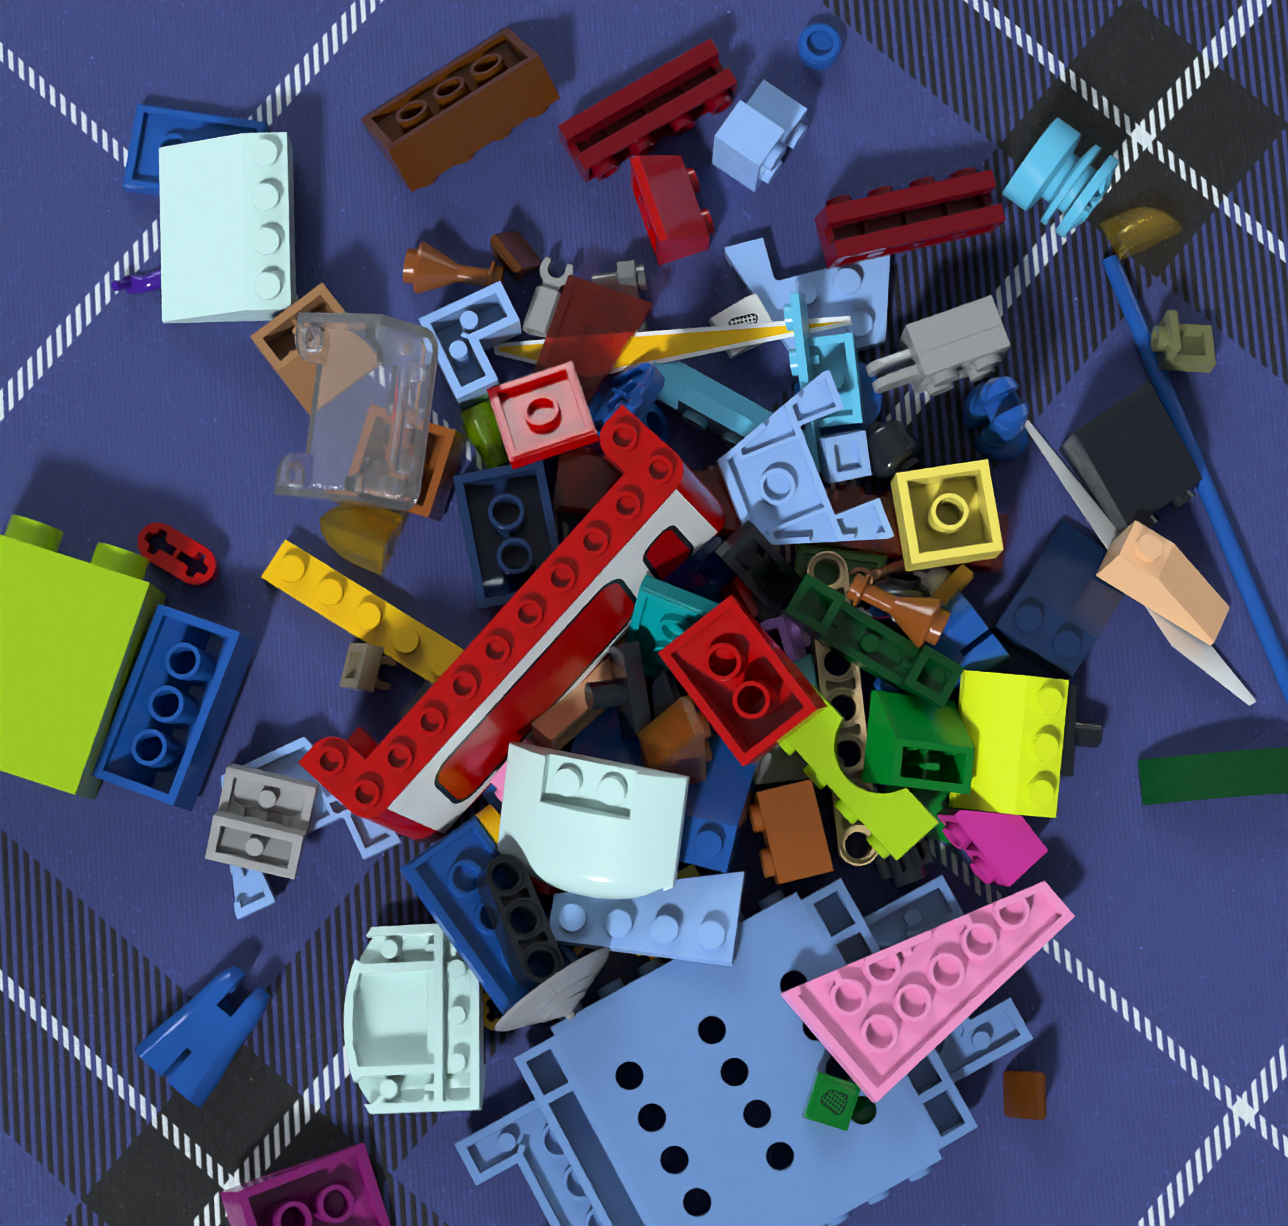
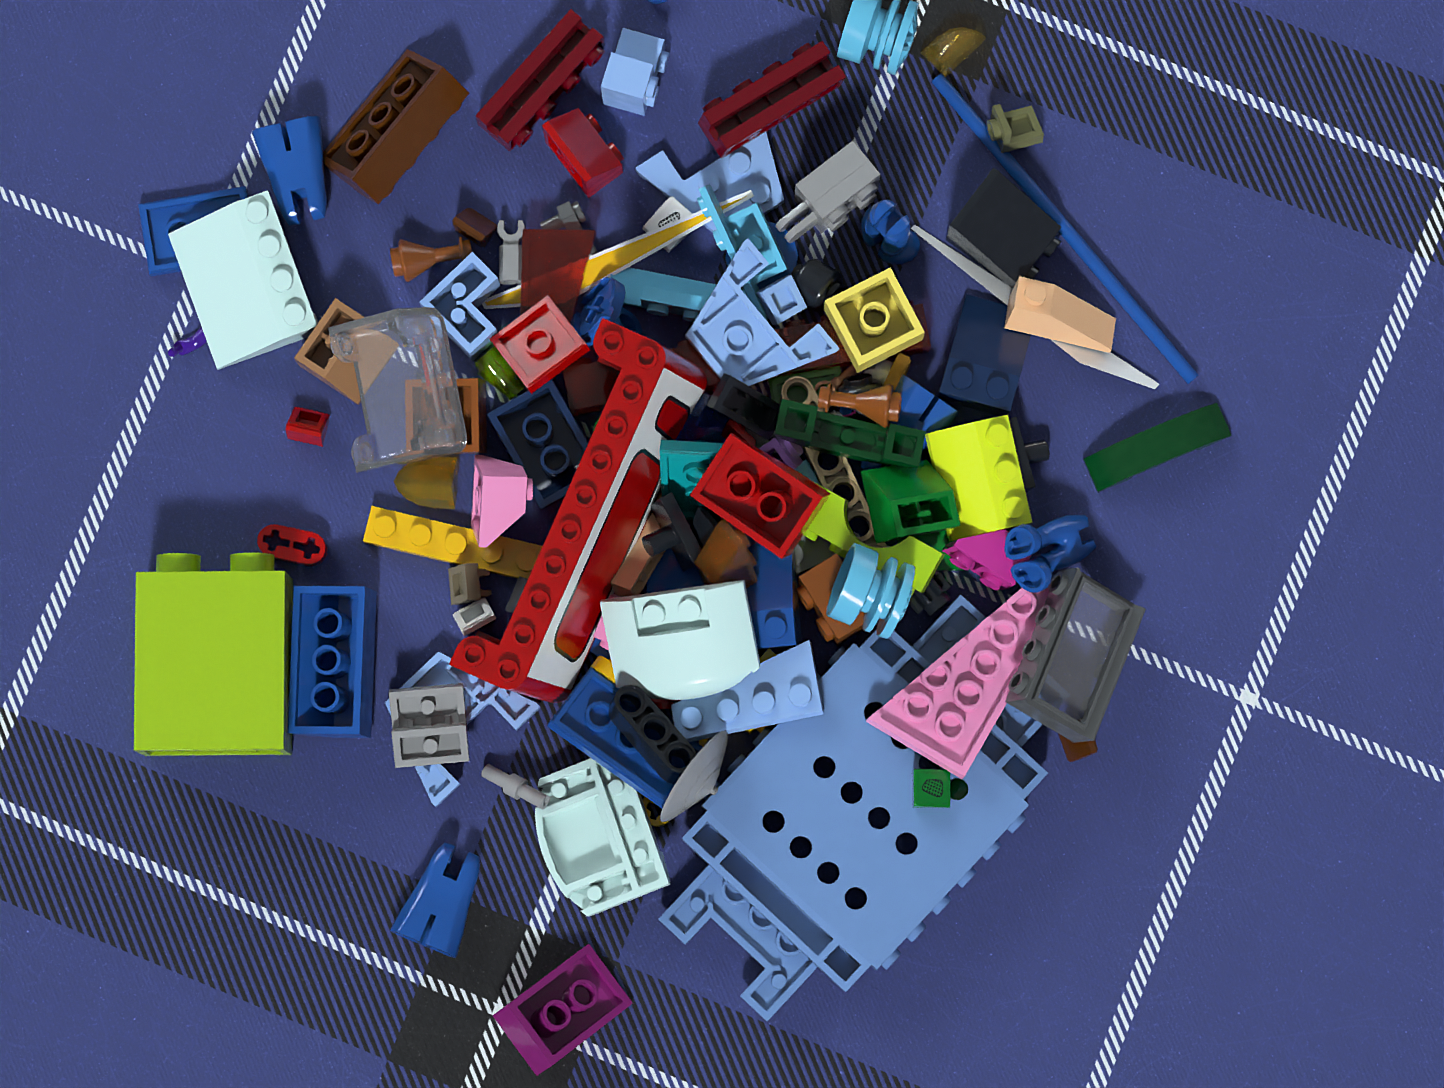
camera: 15 degrees left, 0 degrees up
(243, 422) = (307, 426): none -> red slope
(331, 116) = (294, 165): none -> blue piece
(340, 926) = (515, 786): none -> light grey bar
(359, 709) = (474, 616): none -> white slope
(433, 578) = (497, 497): none -> bright pink slope
(846, 848) = (871, 591): none -> medium azure wheel
(1043, 839) = (1068, 550): none -> blue piece
(1056, 996) = (1074, 655): none -> dark grey window

